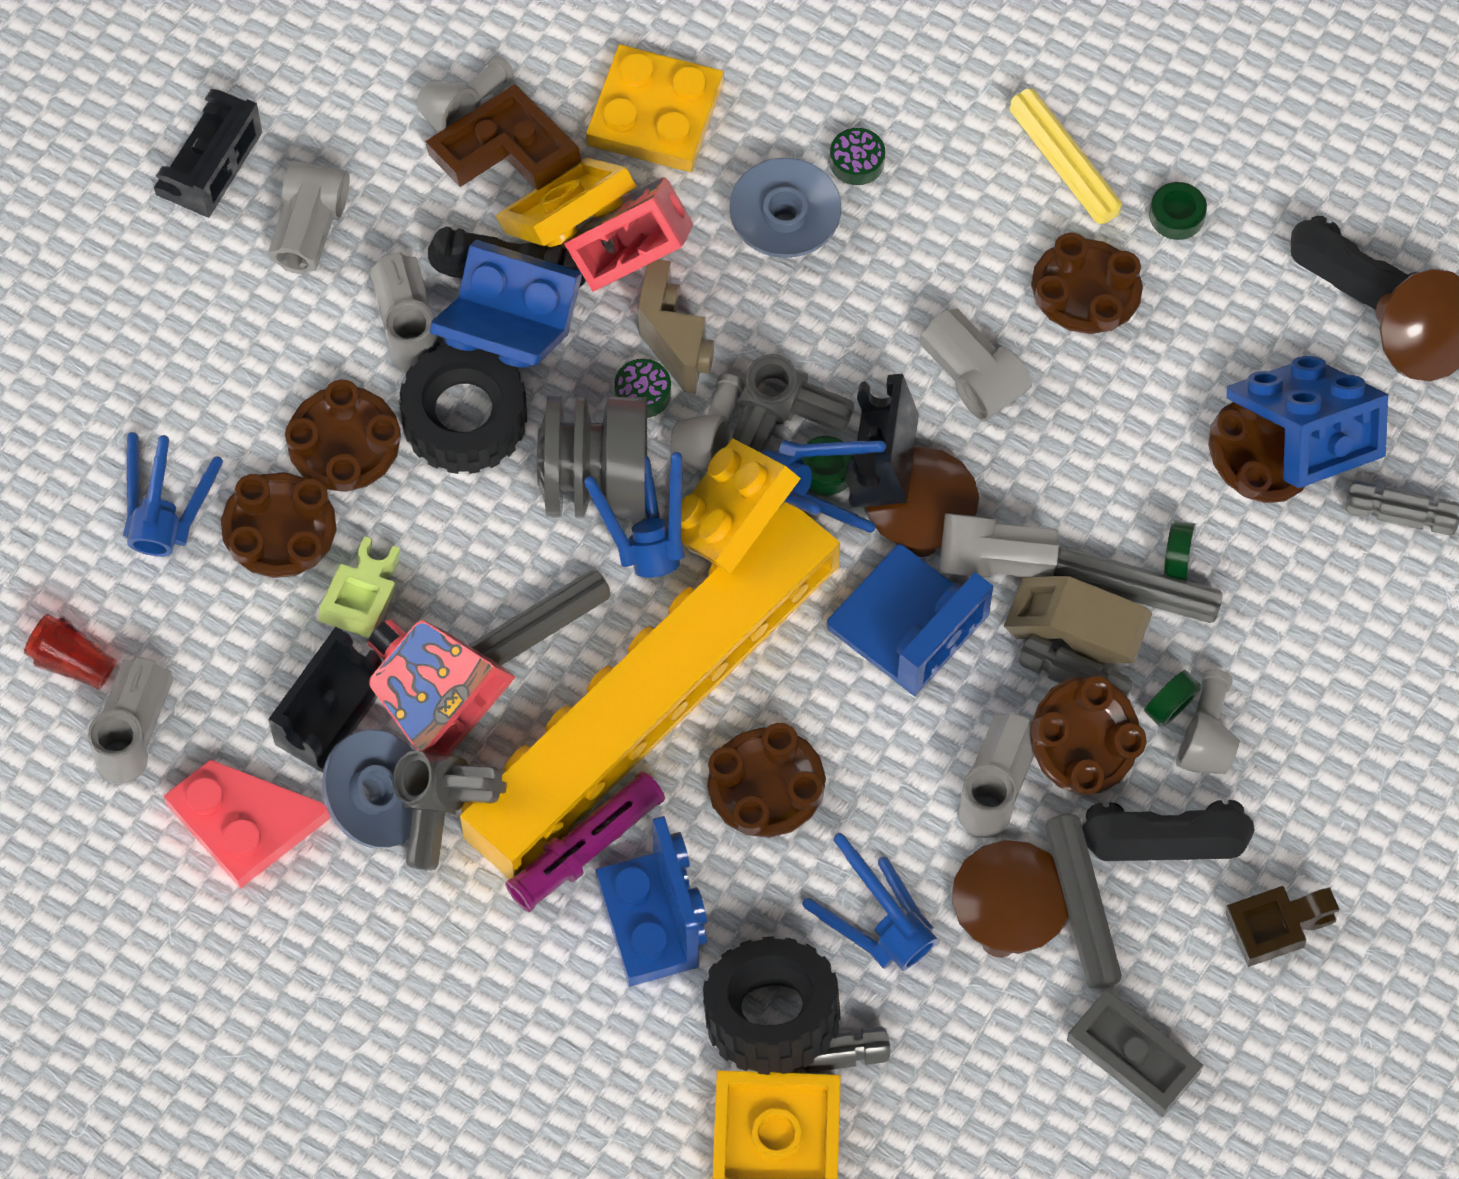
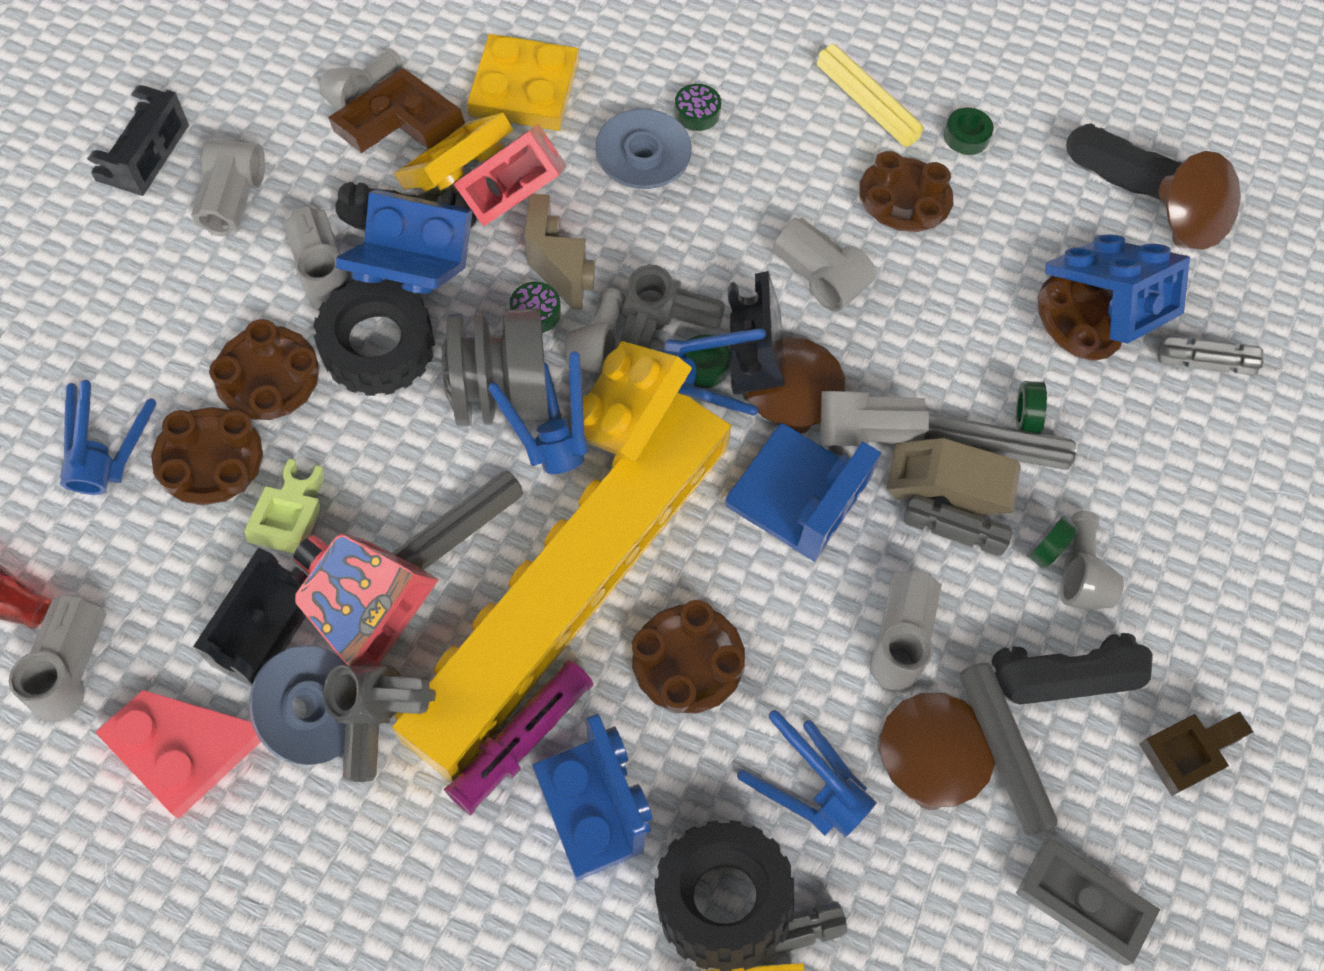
camera: 10 degrees left, 0 degrees up
(1086, 735) = (981, 584): reddish brown dish -> none

